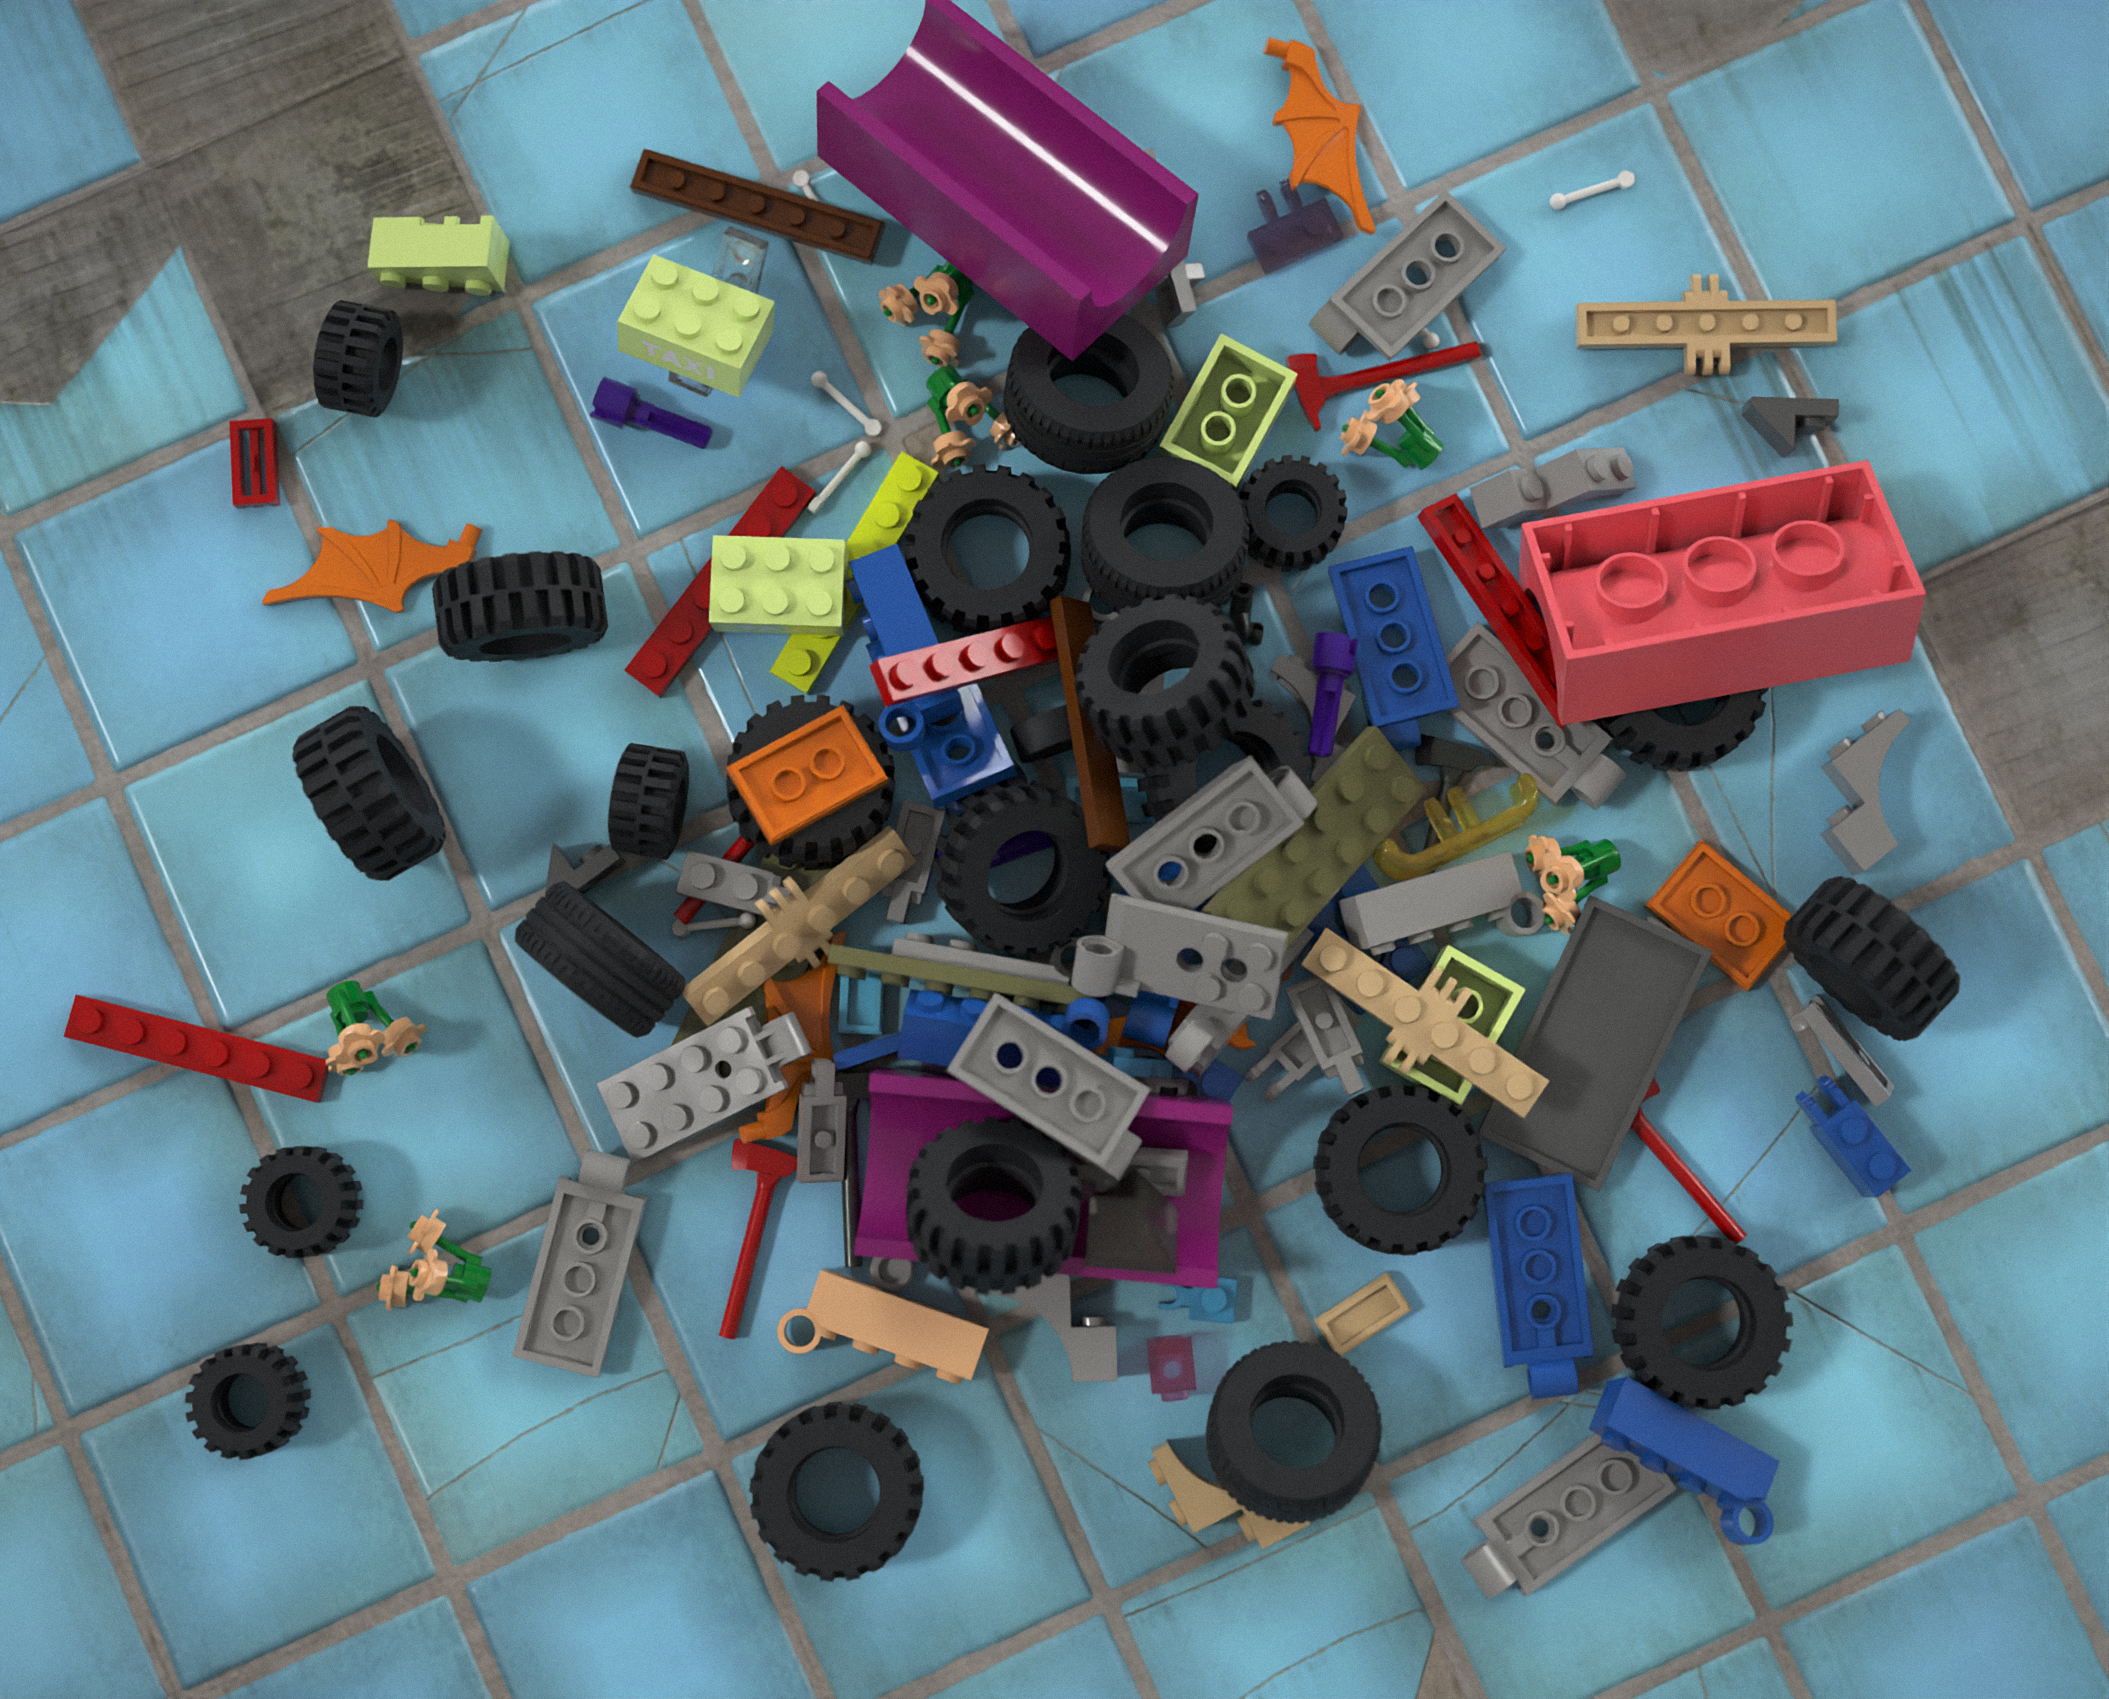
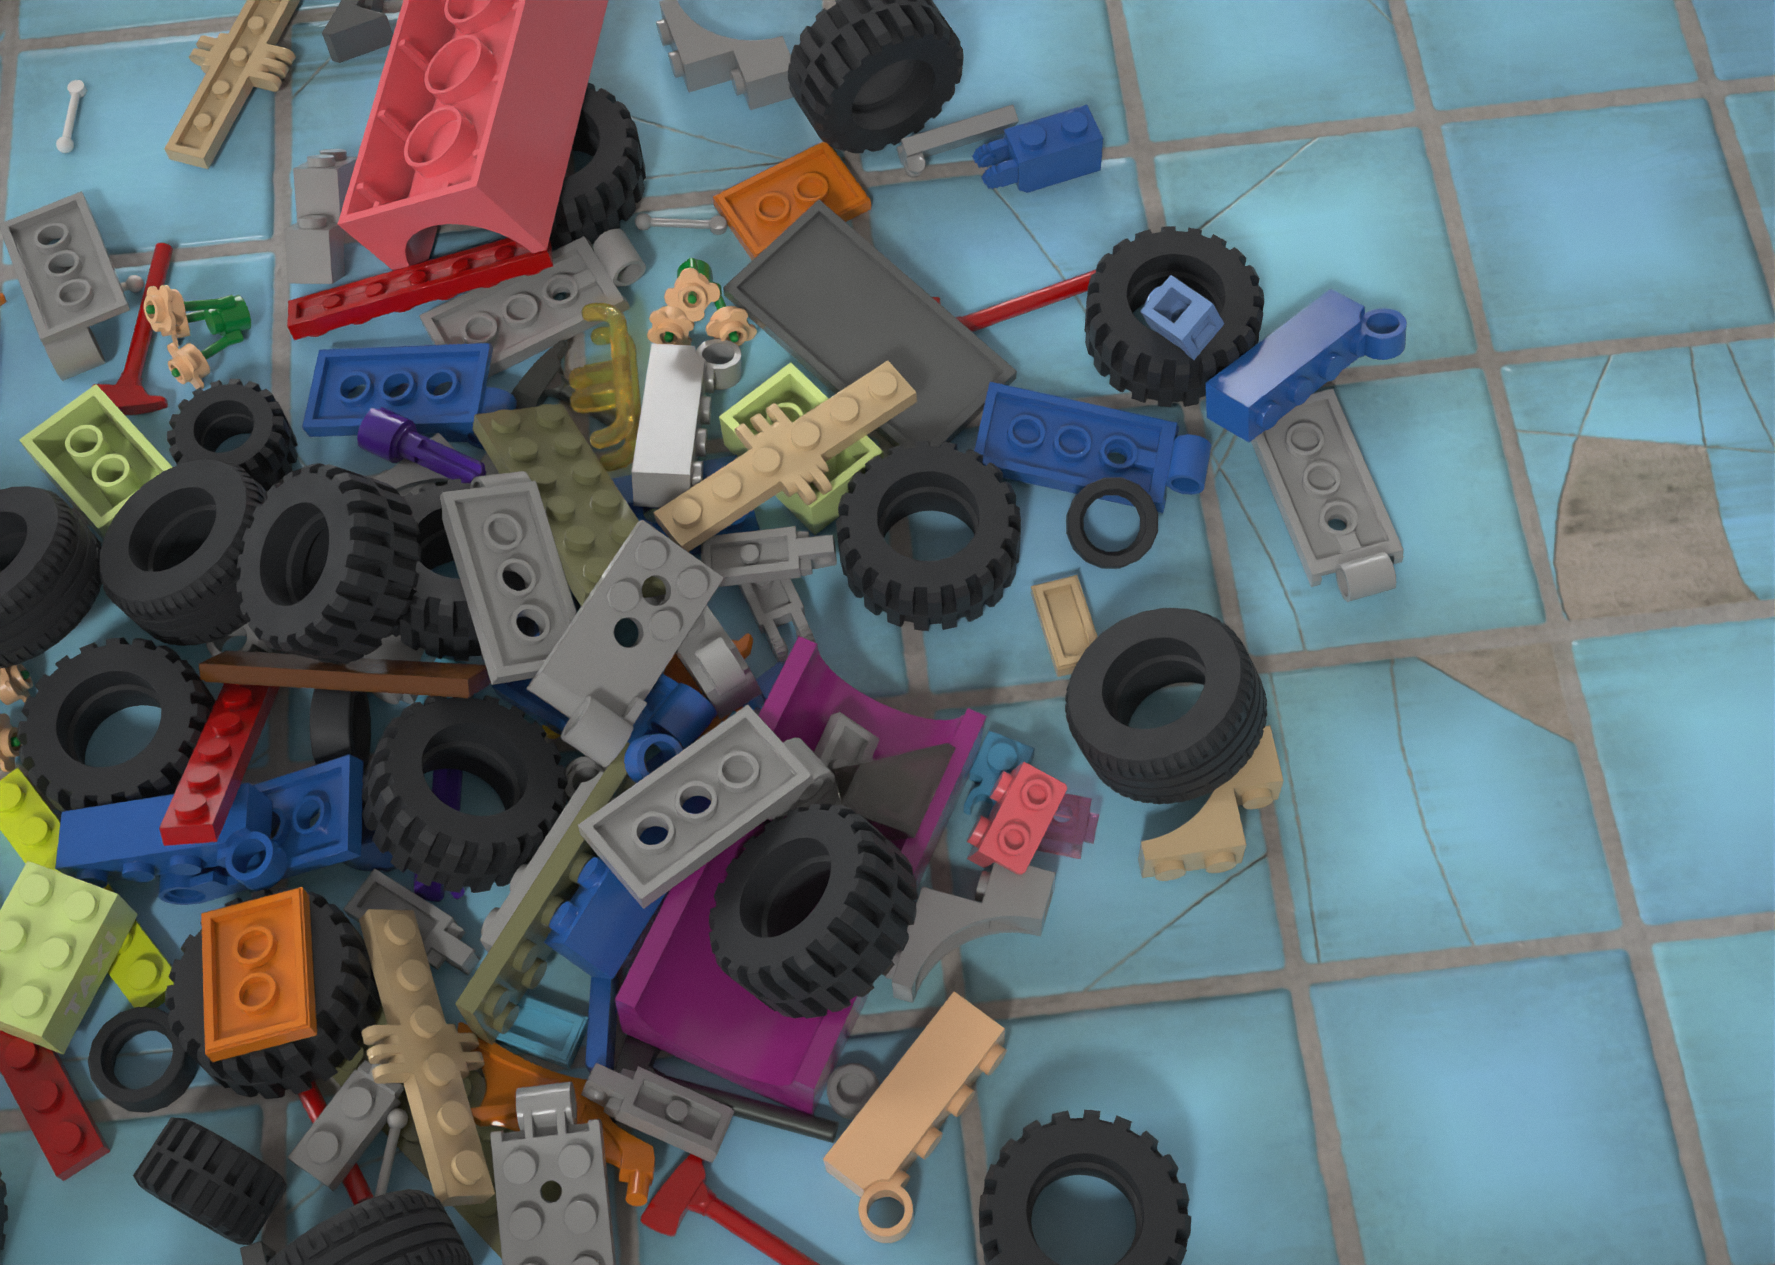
camera: 70 degrees left, 20 degrees down
(717, 665) = (110, 1042): none -> black tyre
(1152, 1332) = (1018, 819): none -> coral bracket
(1443, 1350) = (1148, 523): none -> black tyre
(1671, 1320) = (1182, 316): none -> medium blue brick
(1674, 853) = (716, 224): none -> light grey hinge

